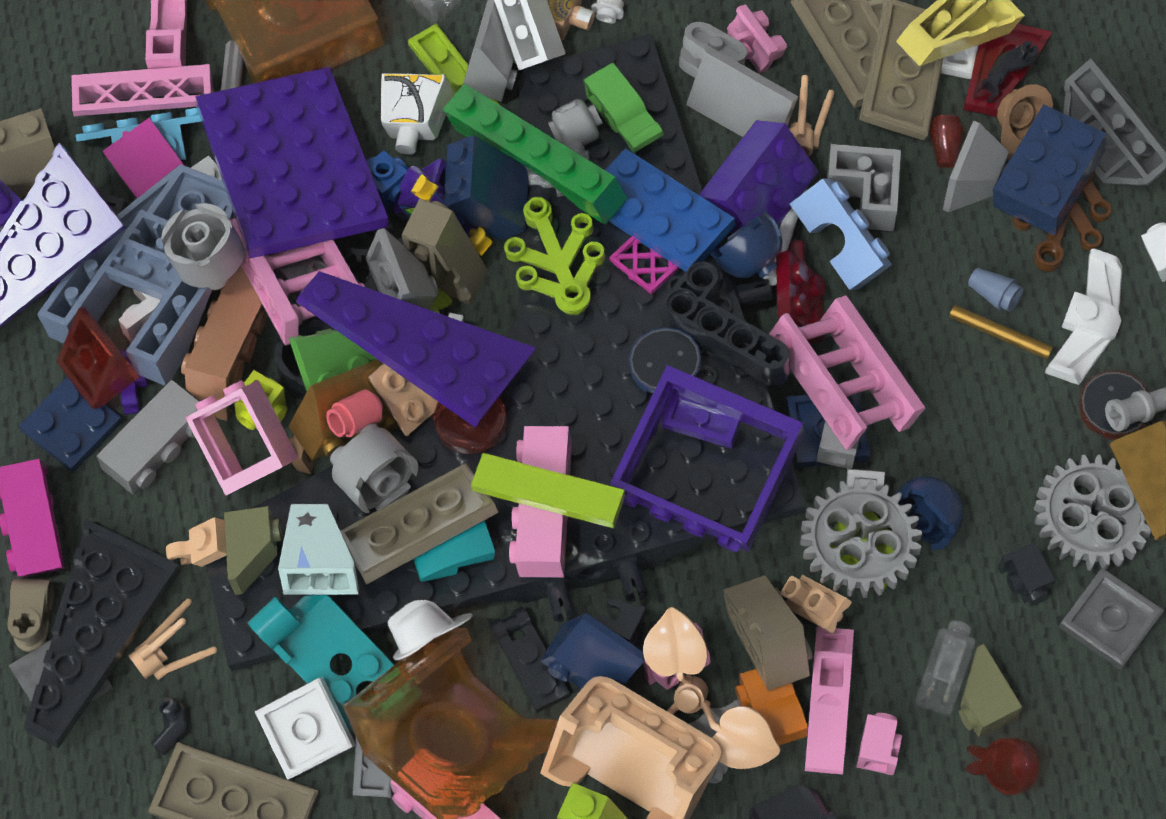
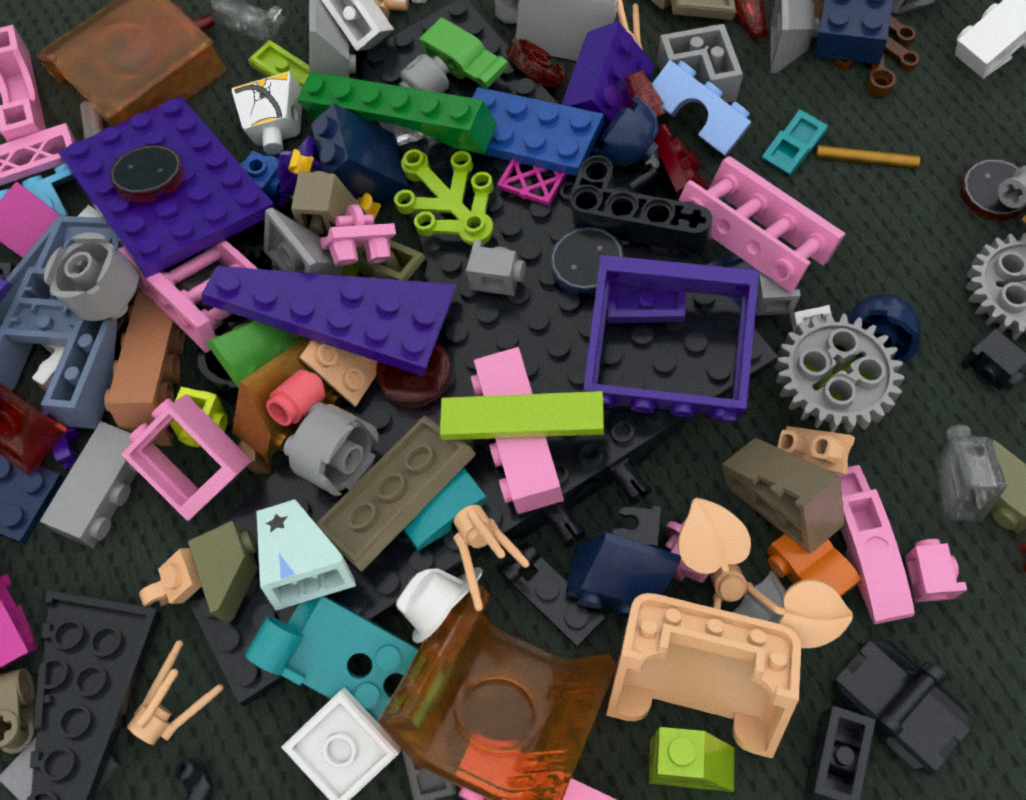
camera: 15 degrees left, 0 degrees up
(277, 152) = (147, 173): none -> black tile
(471, 282) = (357, 231): none -> bright pink hips
(478, 303) = (398, 267): none -> olive slope
(478, 580) = (478, 531): none -> light nougat plant
(575, 344) = (494, 269): none -> light grey brick
(697, 134) = (535, 63): none -> clear red tile
(785, 208) = (641, 86): none -> clear red cone
(933, 296) = (795, 143): none -> teal slope
(996, 289) = (849, 121): sand blue cone -> none
(1091, 318) = (940, 122): white plate -> none

